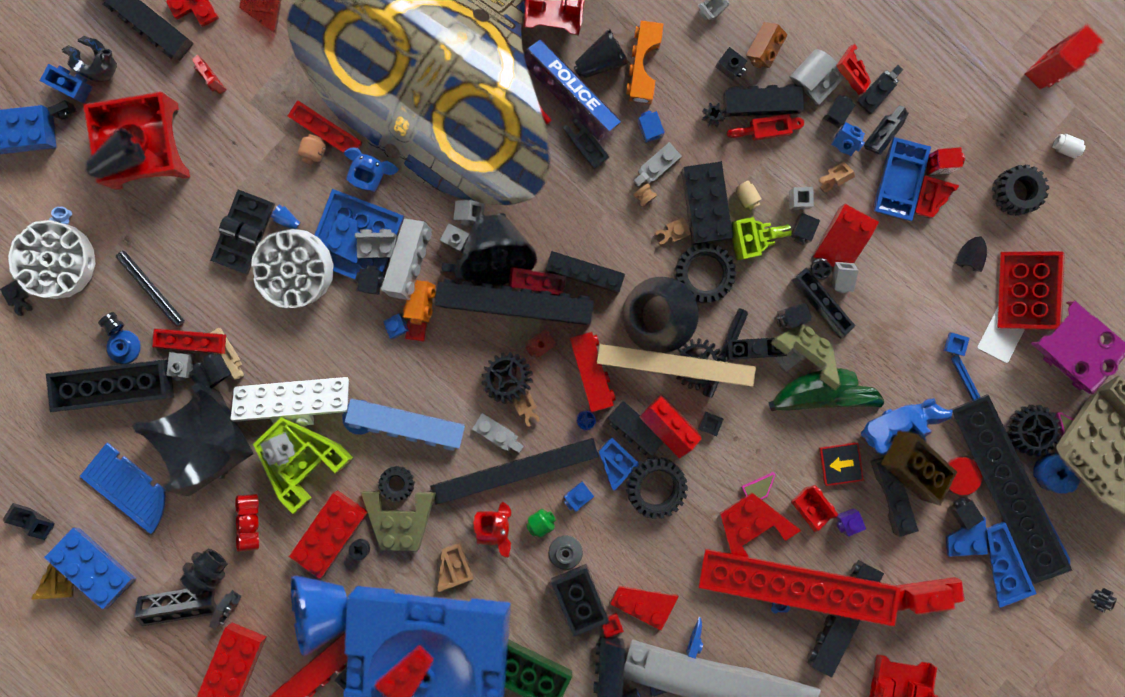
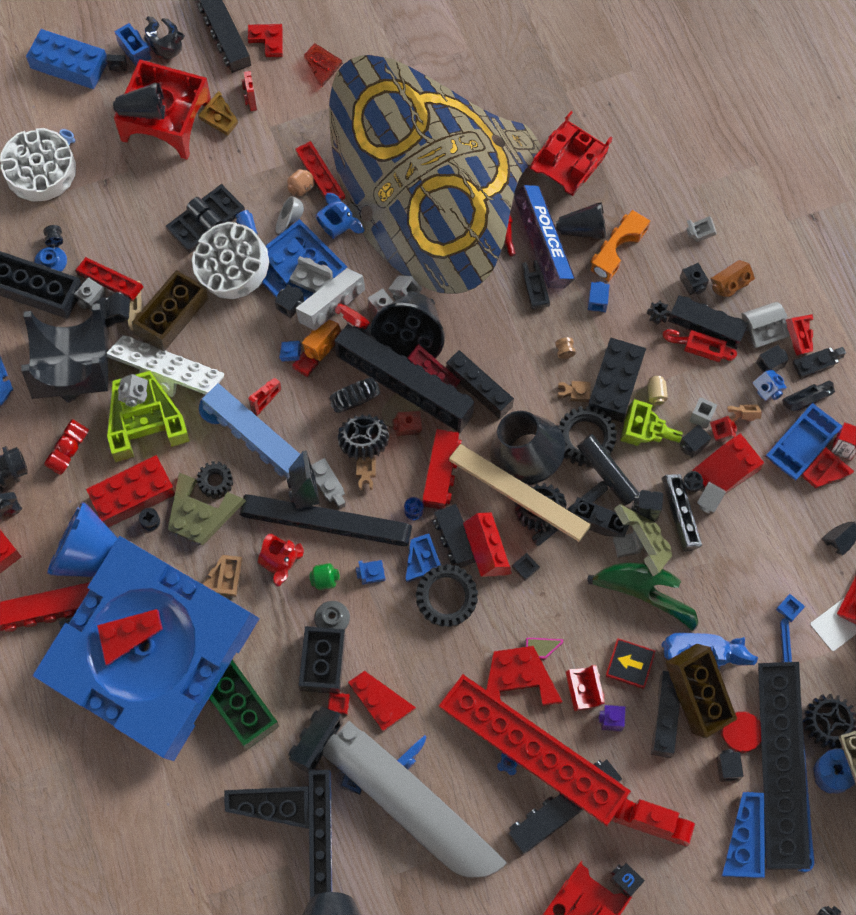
camera: 25 degrees right, 20 degrees down
(150, 288) = (102, 226): black axle -> none
(193, 115) = (219, 115): none -> pearl gold wing
(264, 345) = (170, 310): none -> dark brown brick
(319, 186) = (290, 213): none -> light grey cap
(396, 386) = (264, 396): none -> red wing
(437, 269) = (352, 316): none -> red tile
(479, 344) = (354, 395): none -> black gear
(479, 453) = (302, 482): none -> black slope
(657, 164) = (589, 330): light grey hinge -> none
(742, 298) = (608, 469): none -> black brick
(827, 205) = (723, 429): none -> red brick
(924, 652) = (626, 879): none -> black brick
(968, 542) = (721, 795): blue wing -> none

